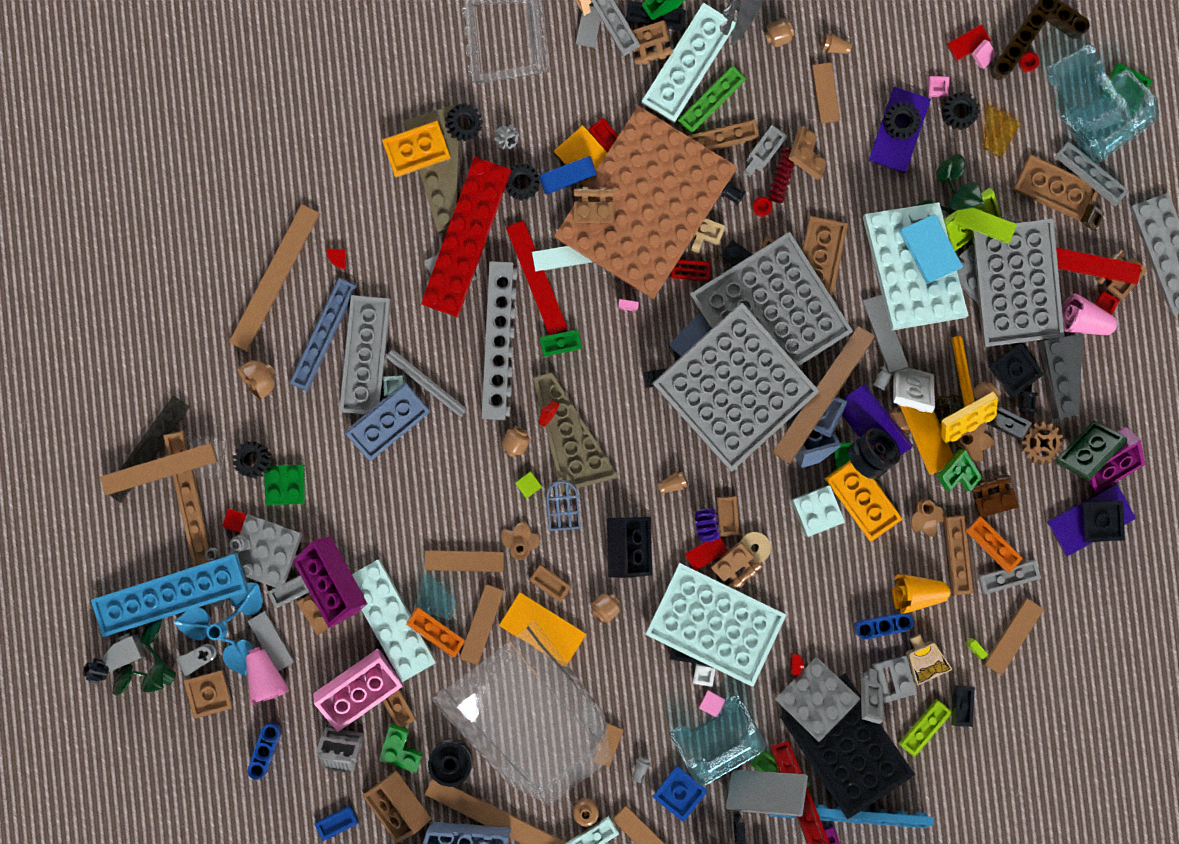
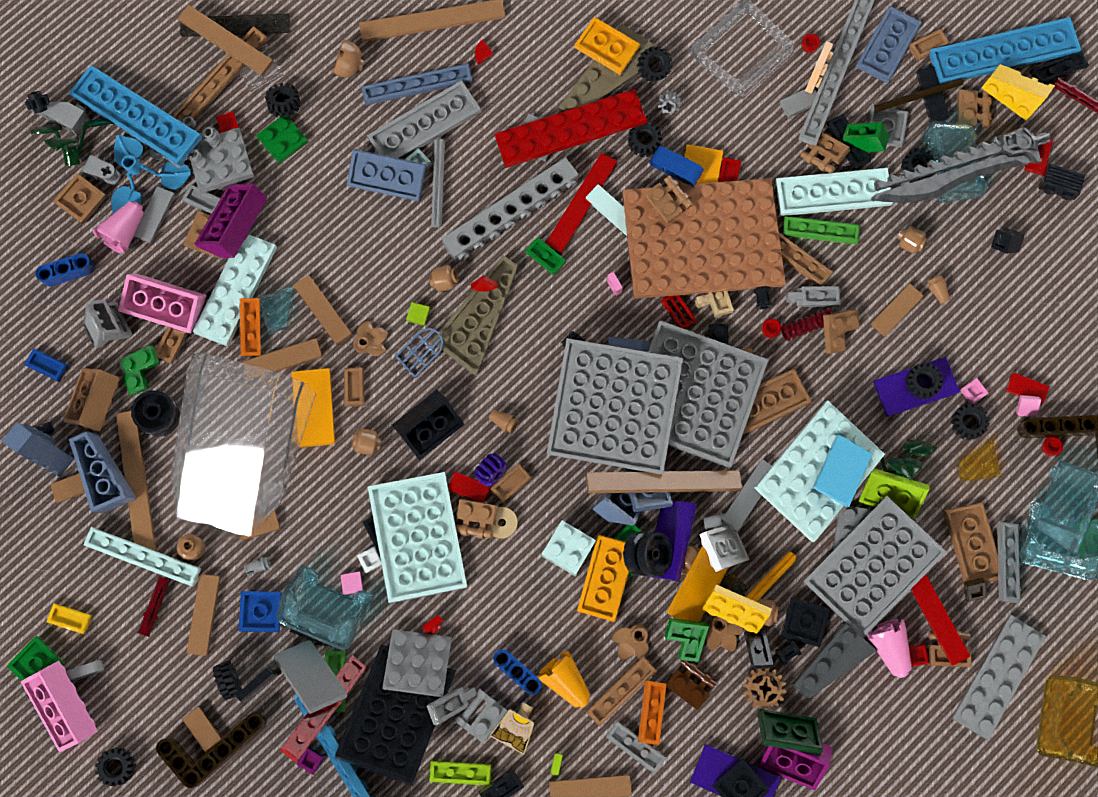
camera: 50 degrees right, 10 degrees down
(985, 224) = (897, 500): lime tile -> none

